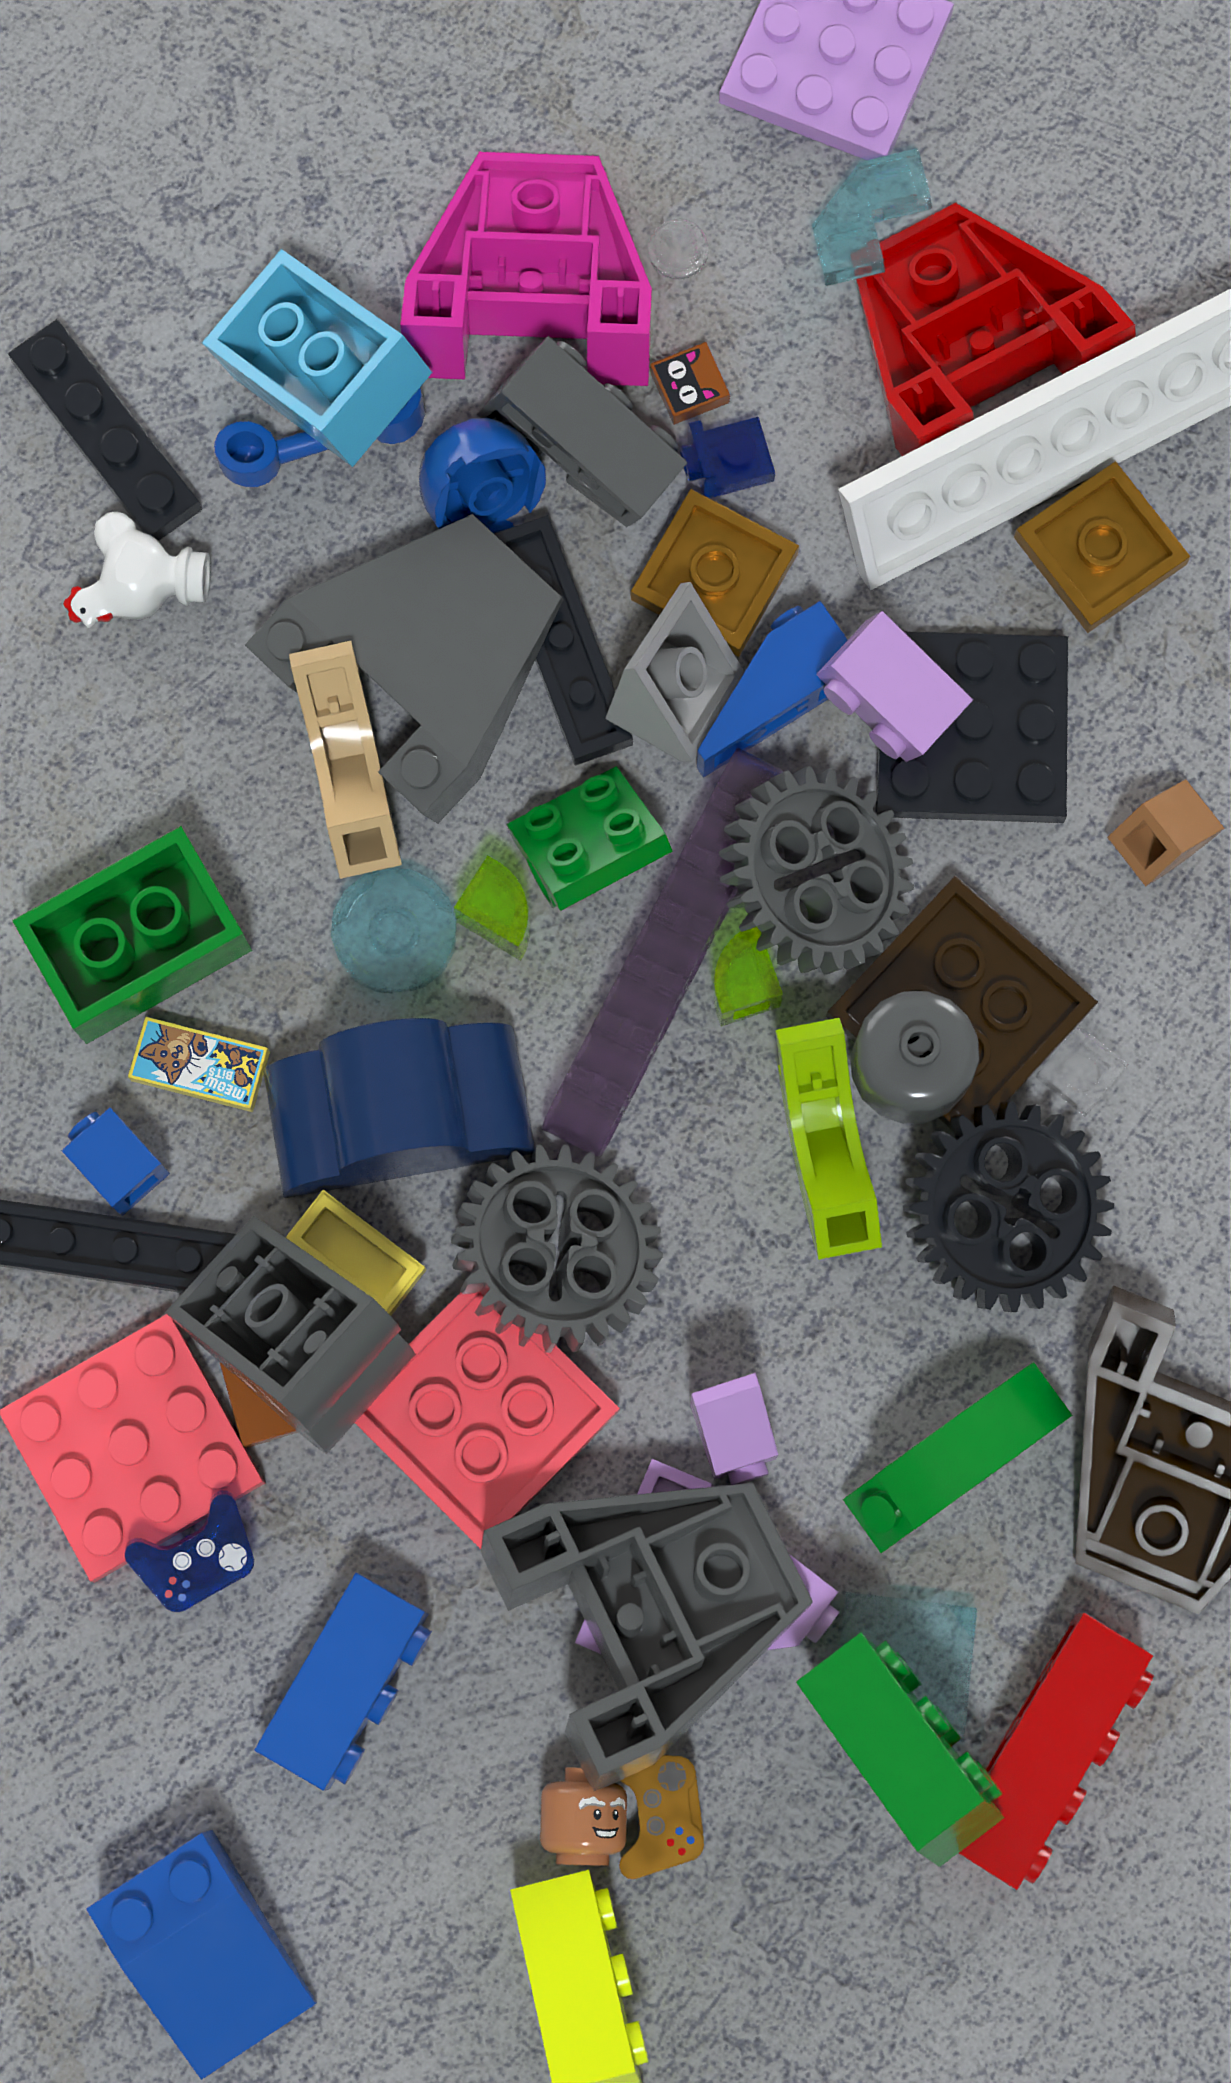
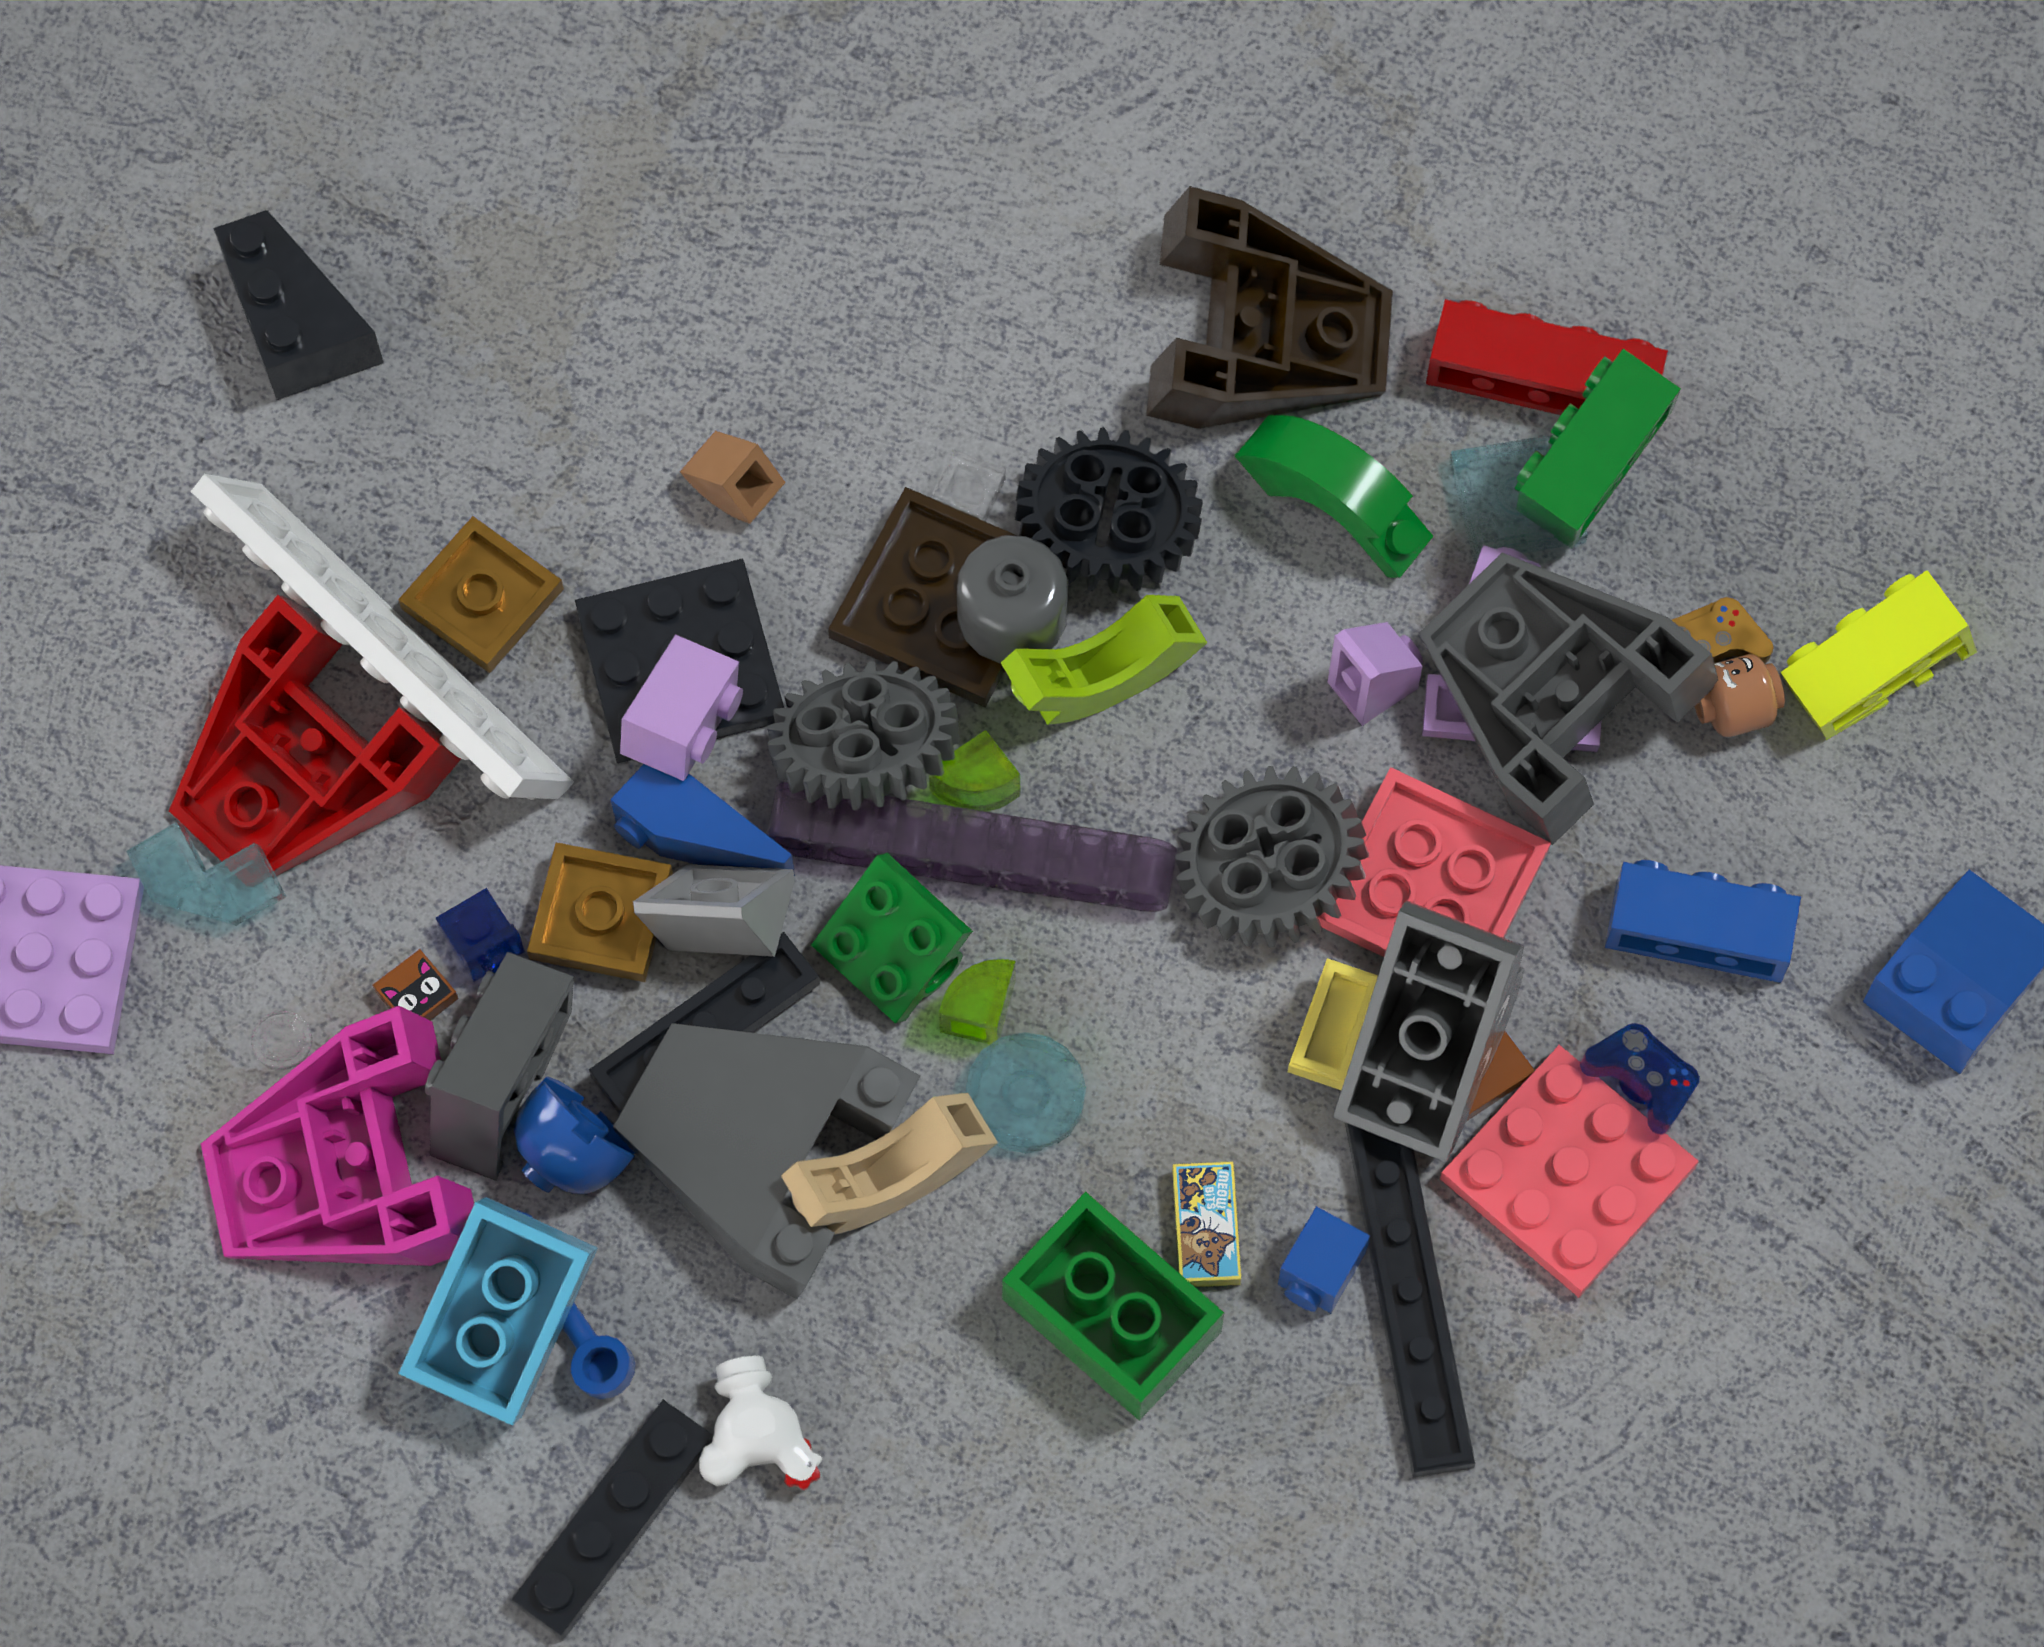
camera: 110 degrees left, 10 degrees down
(397, 1103) = (1197, 1033): dark blue brick -> none

